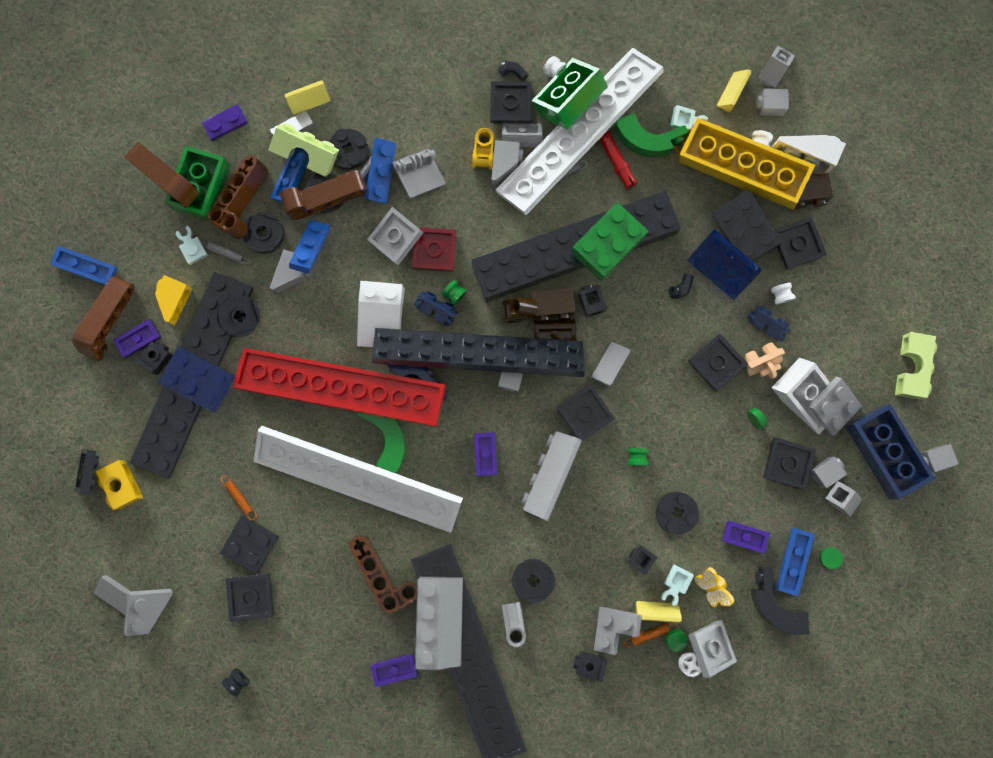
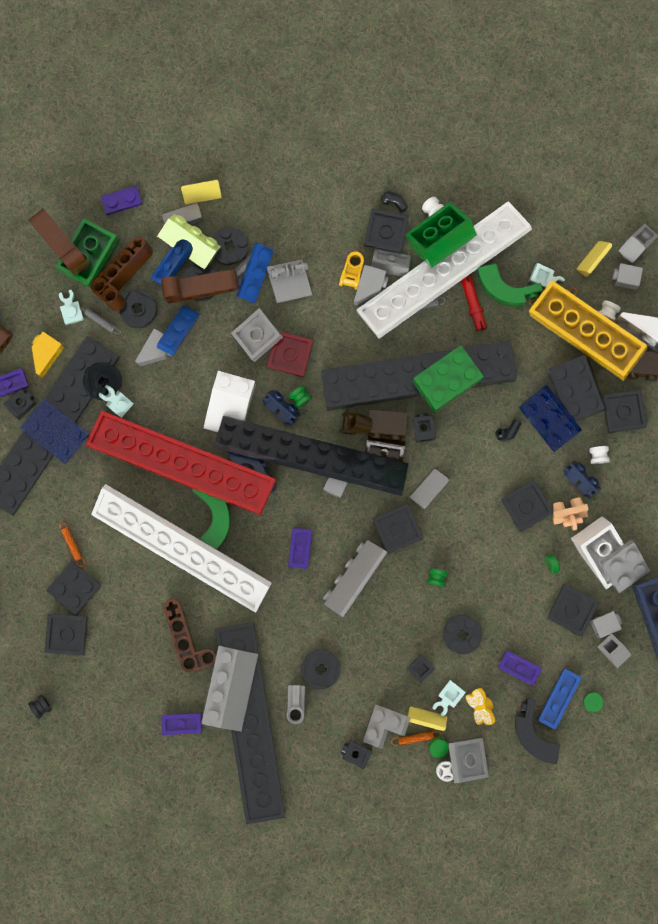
camera: 15 degrees right, 0 degrees up
(259, 336) = (117, 401): none -> light aqua plate

